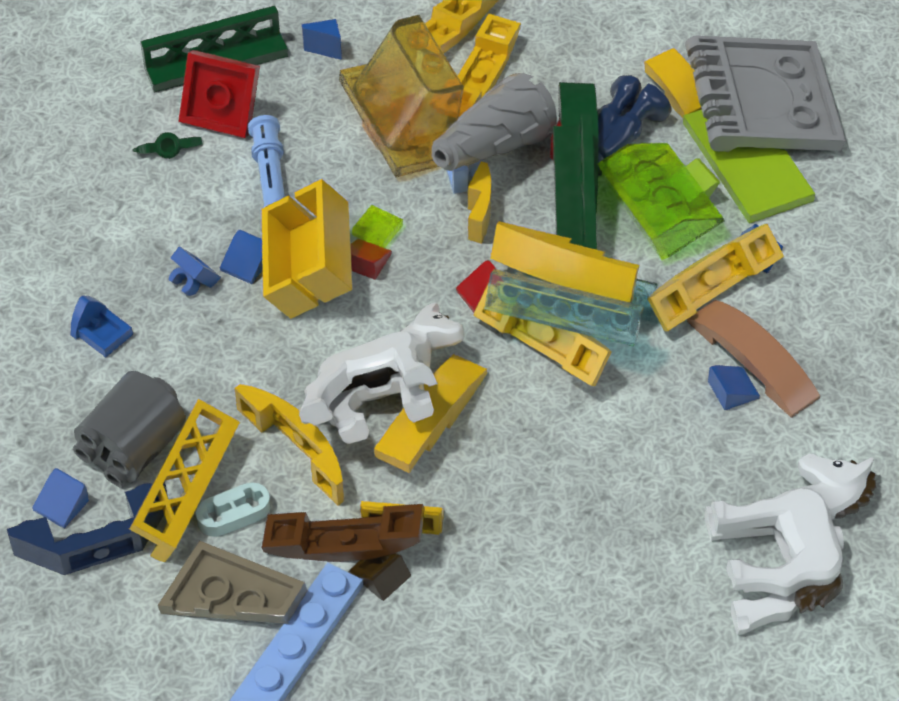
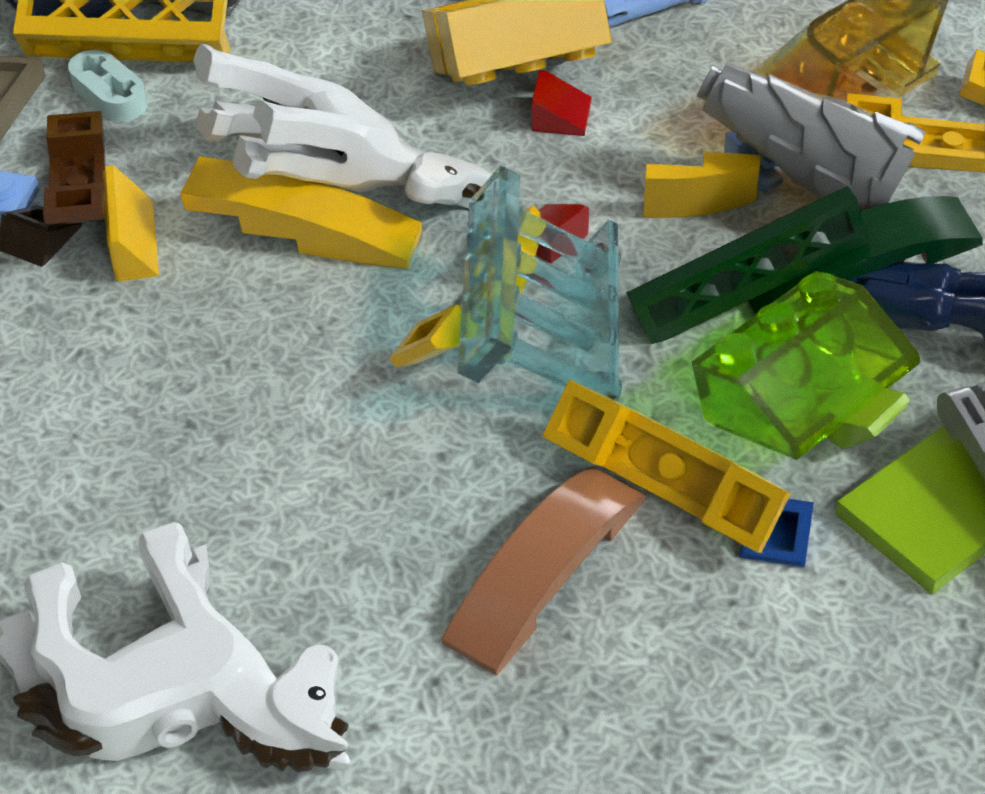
camera: 75 degrees right, 5 degrees down
(268, 409) = (173, 138): yellow slope -> none
(377, 226) = (619, 109): clear neon green tile -> none
(563, 263) = (585, 268): yellow slope -> none
(731, 386) = (466, 539): blue slope -> none

